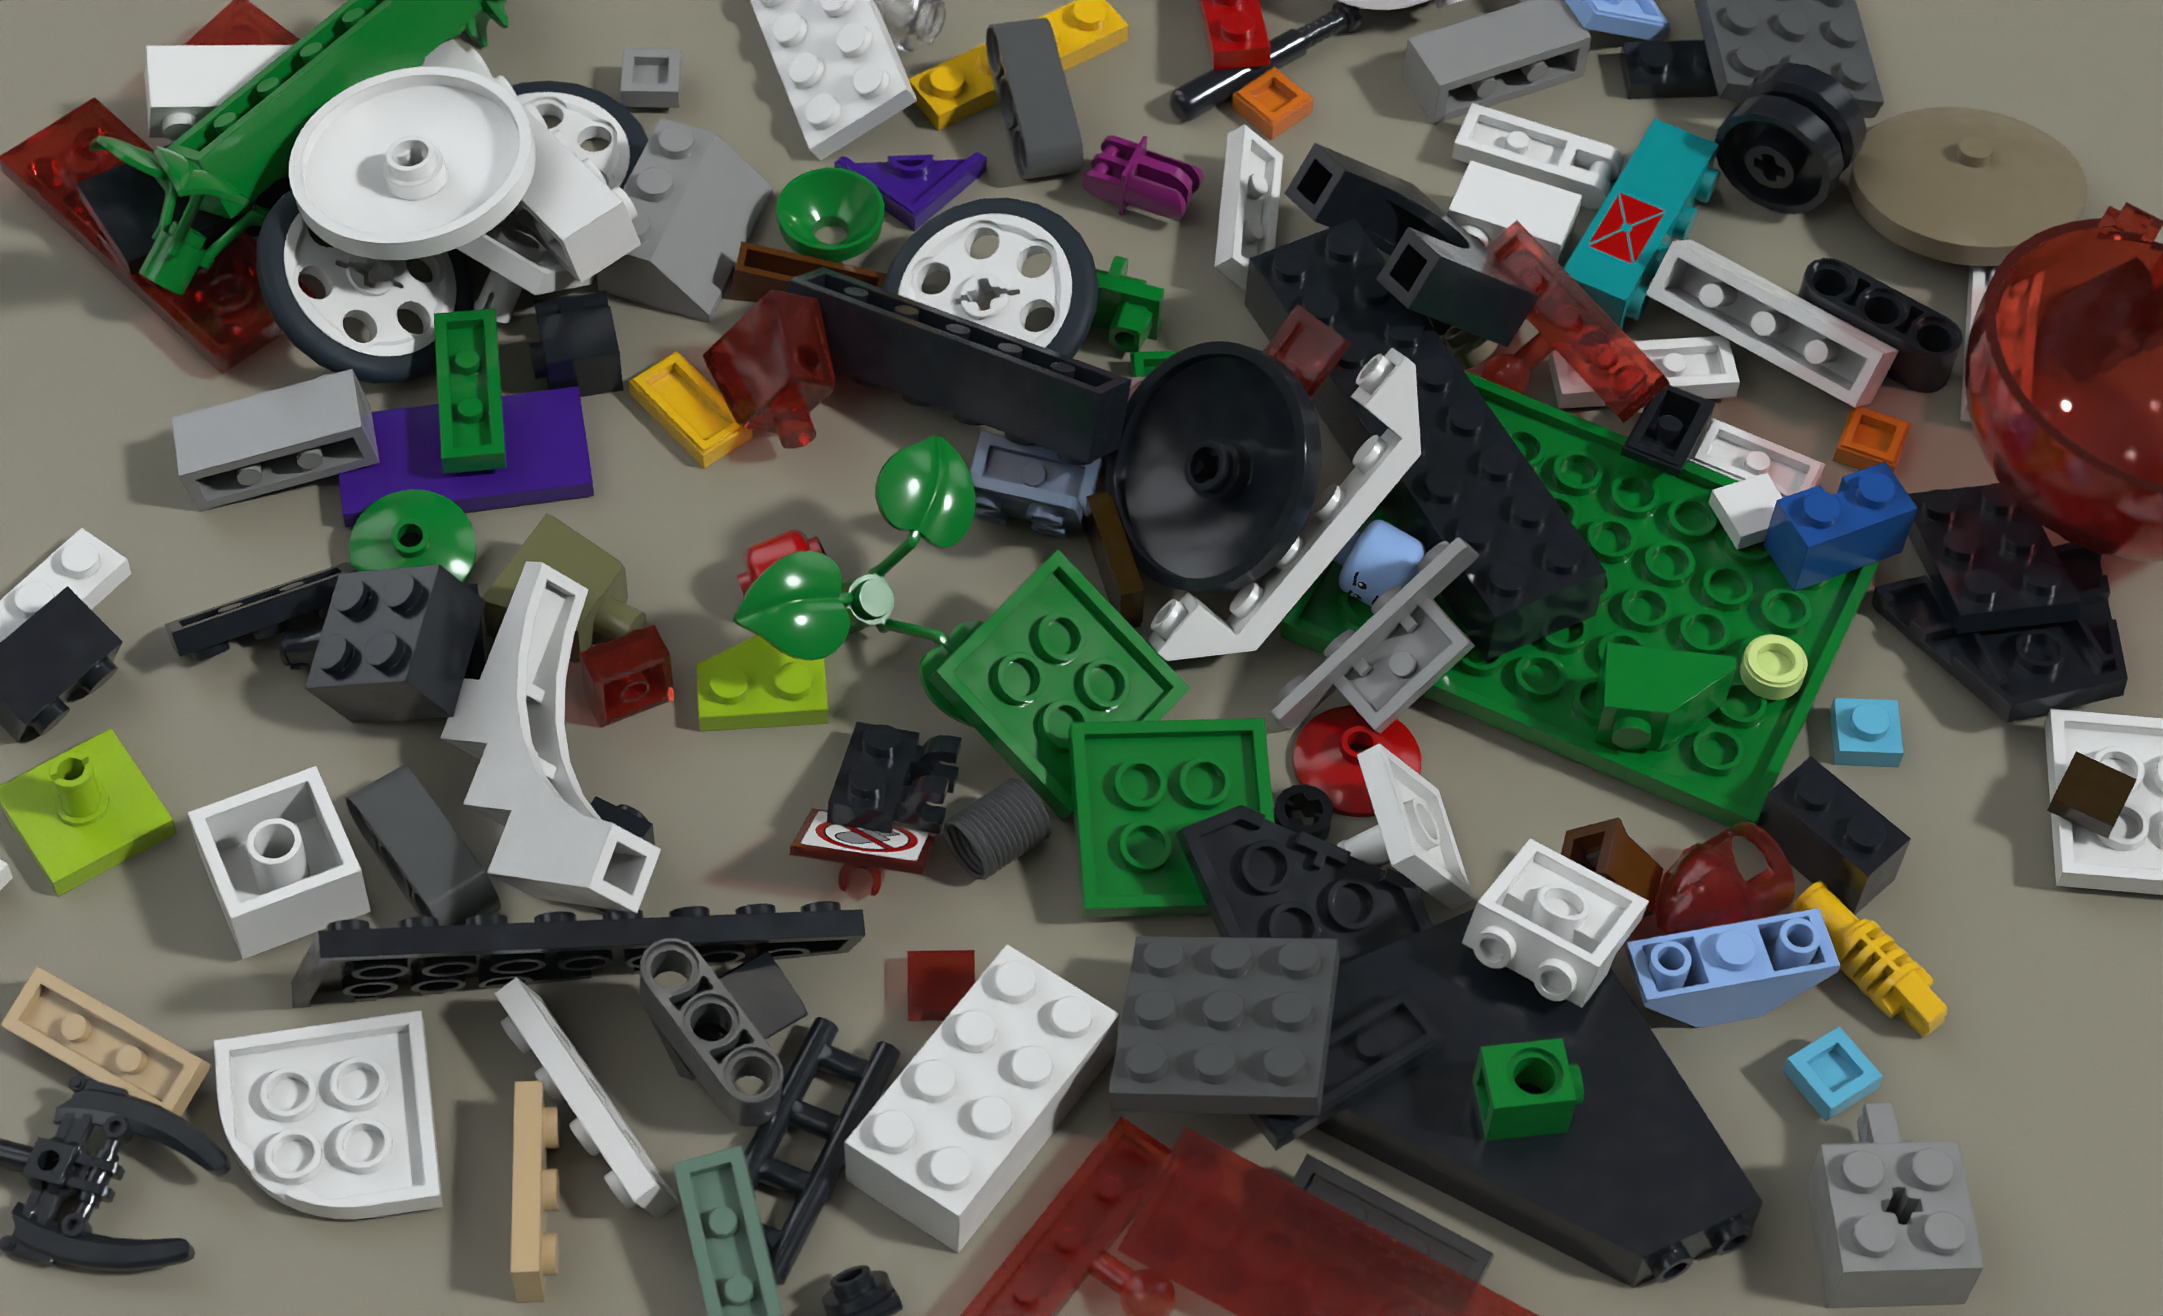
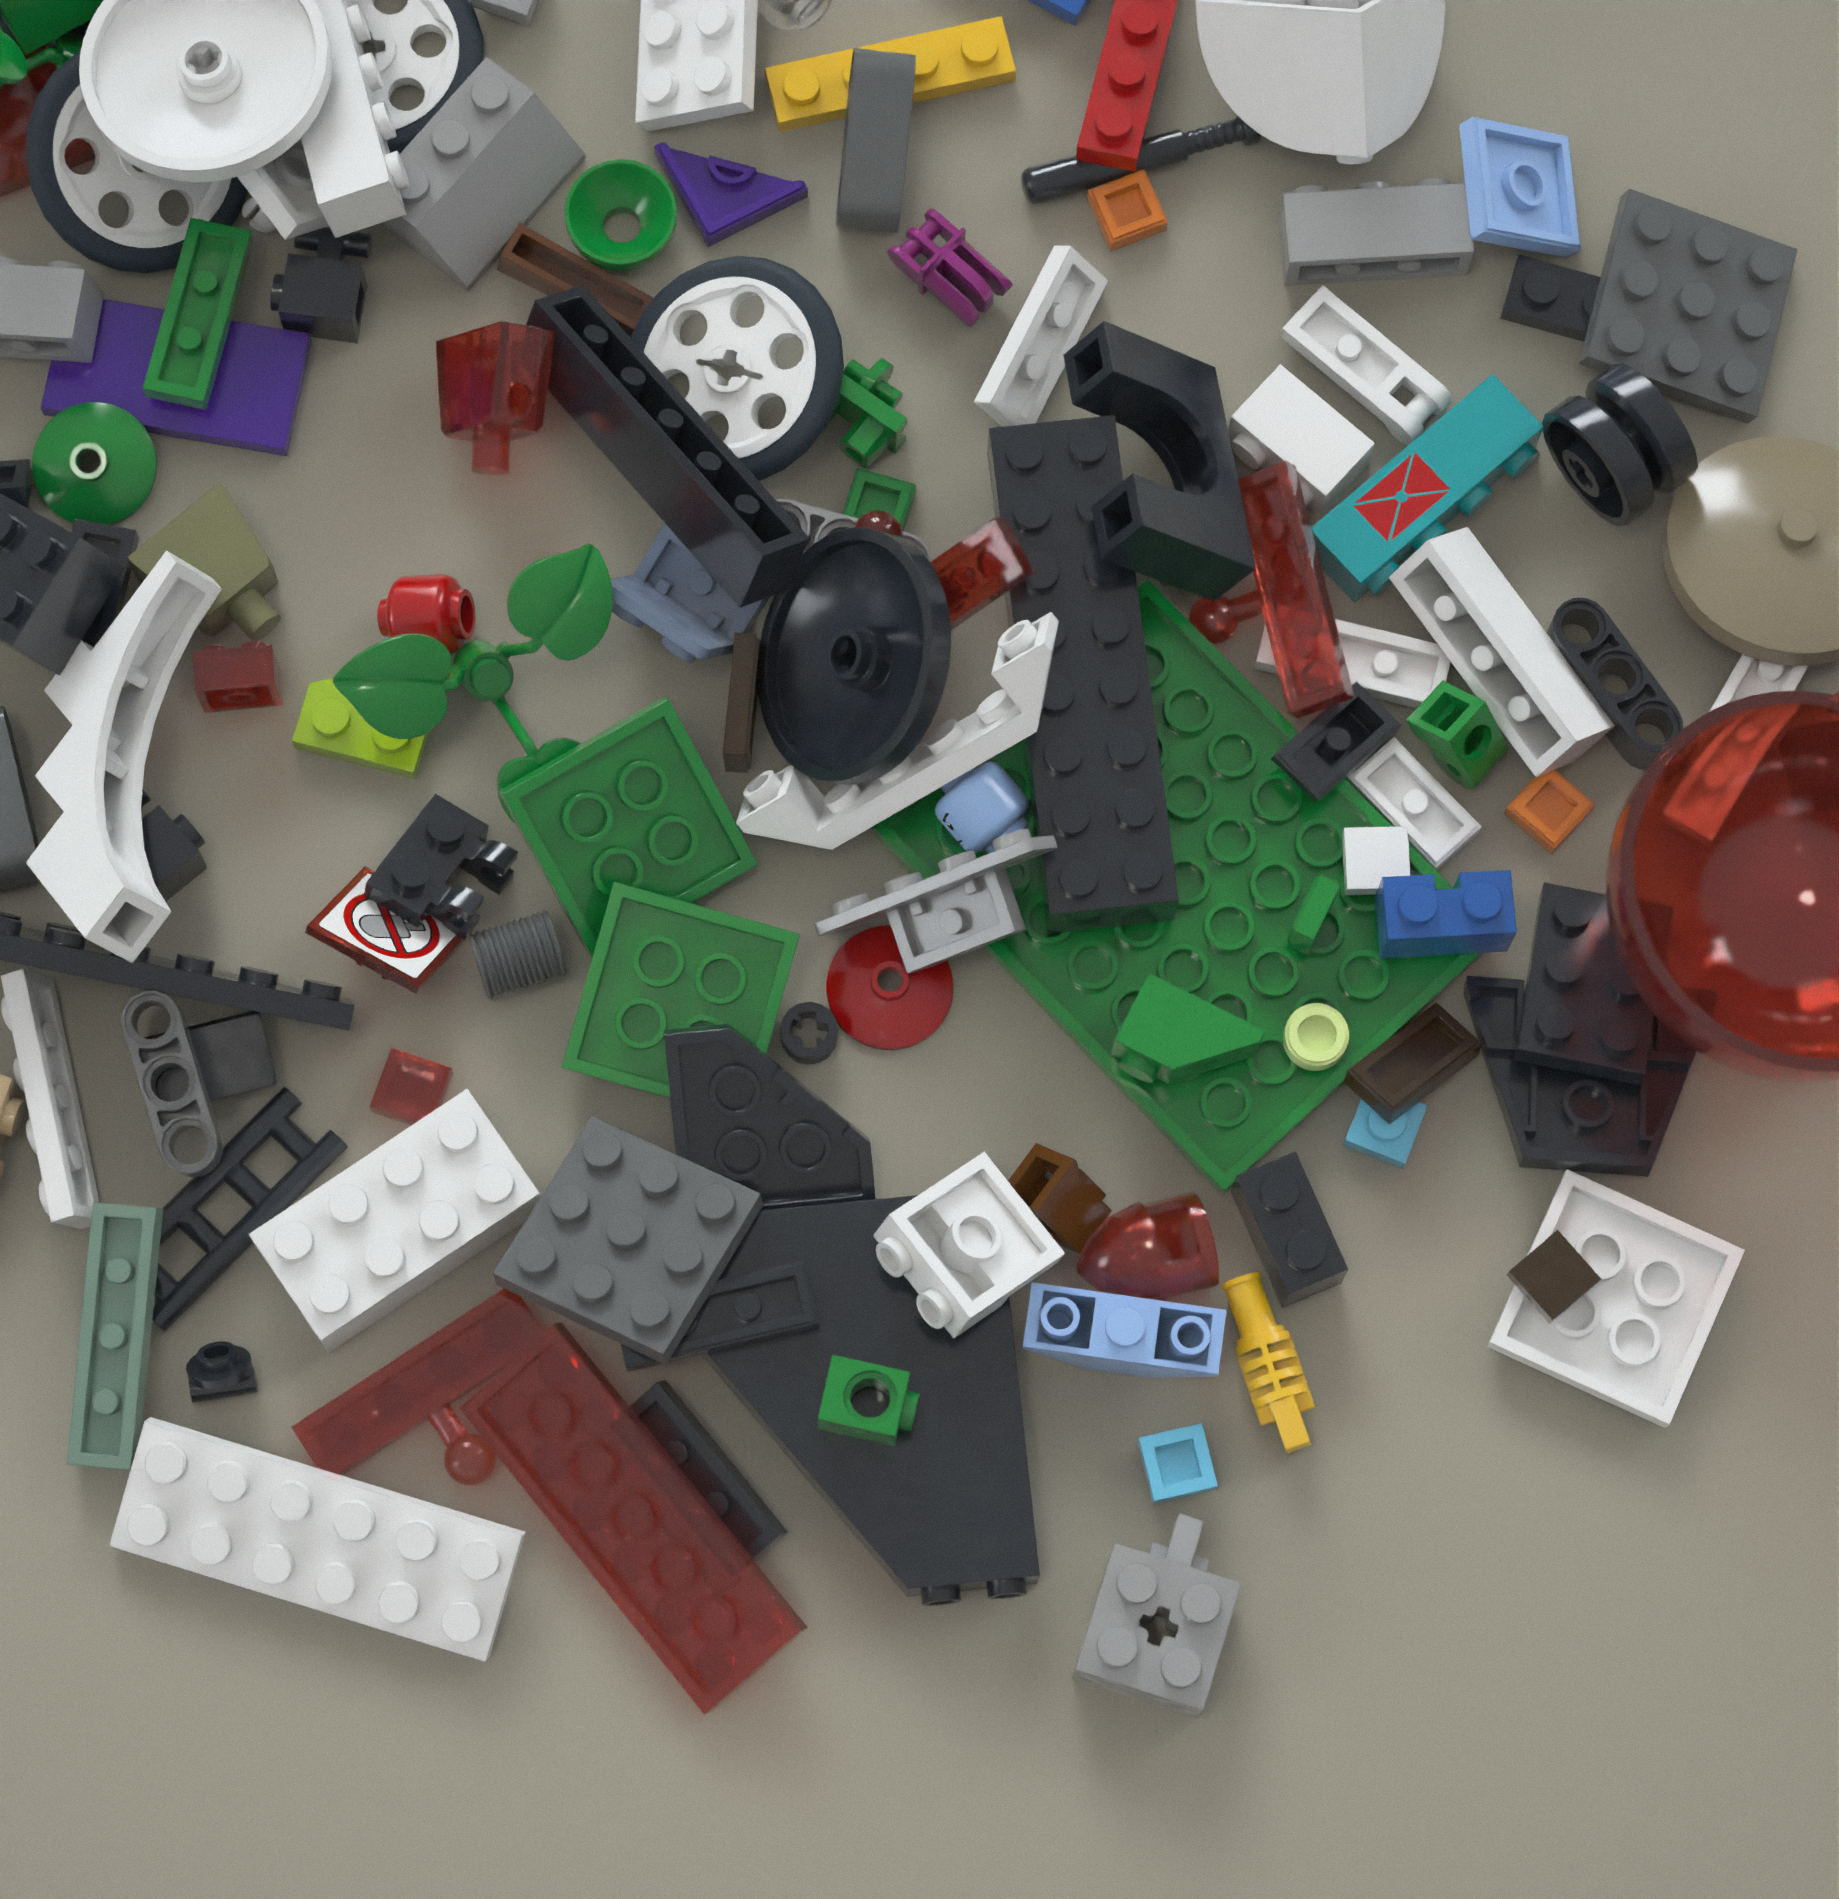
camera: 20 degrees right, 20 degrees up
(688, 409) = (407, 388): yellow tile -> none
(1410, 829) = (890, 1092): white tile -> none
(1723, 563) = (1313, 914): none -> green tile
(1772, 394) = (1459, 733): none -> green leg
(1867, 667) = (1412, 1063): none -> dark brown tile

